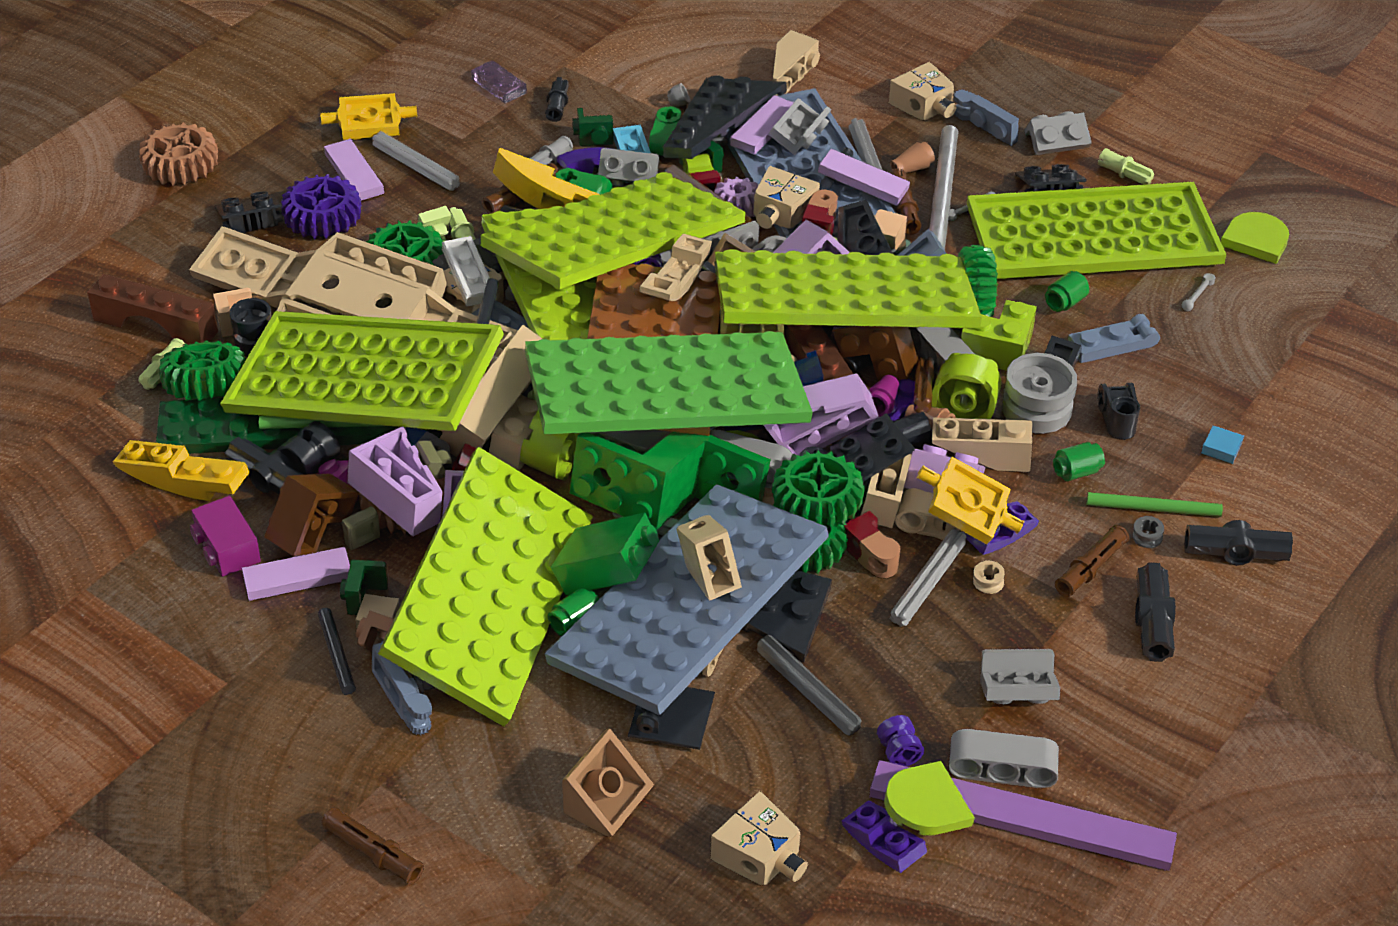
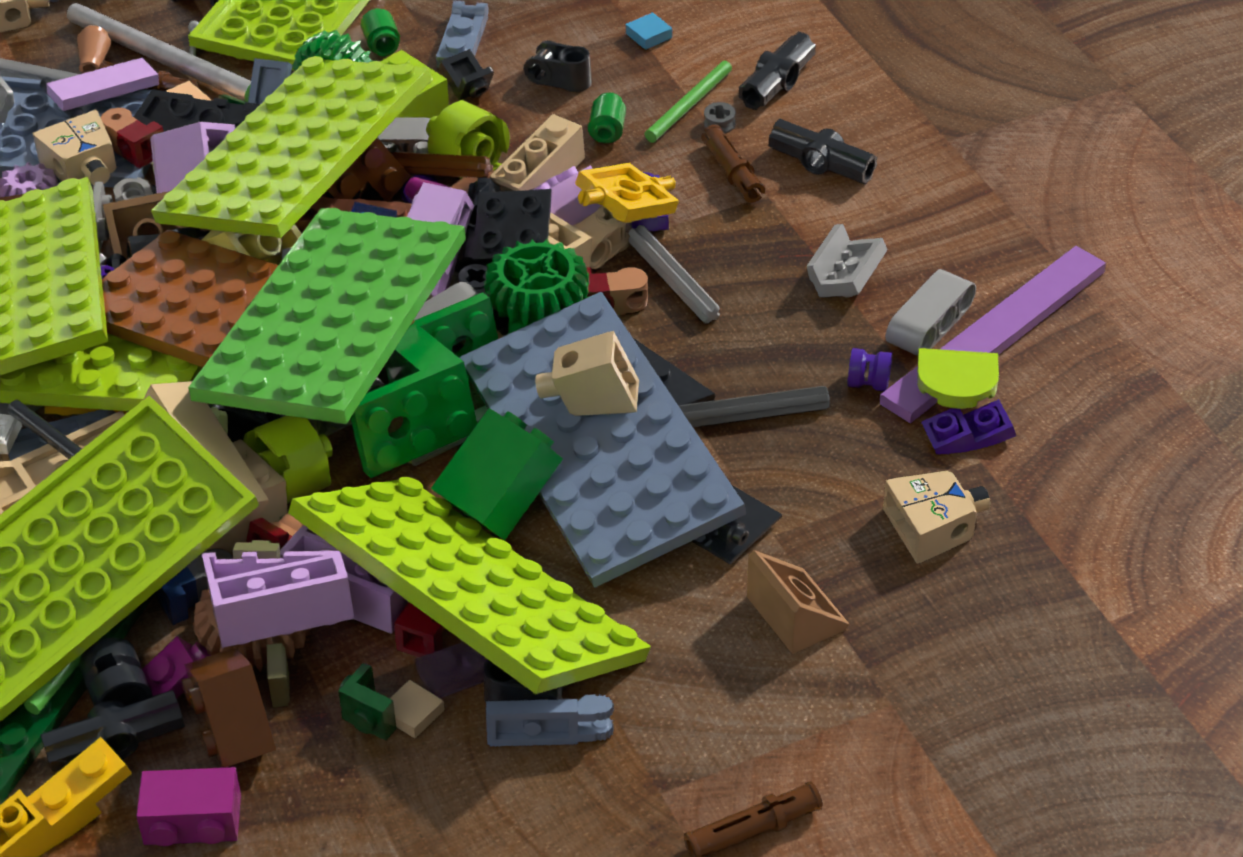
camera: 60 degrees left, 0 degrees up
(296, 573) = (294, 763): lavender tile -> none
(336, 651) = (442, 765): black bar -> none
(369, 627) = (449, 707): nougat bracket -> none
(570, 610) = (541, 538): green brick -> none
(680, 270) = (154, 252): tan slope -> none
(989, 568) = (701, 227): tan bush -> none
(1040, 391) = (512, 92): light grey wheel -> none

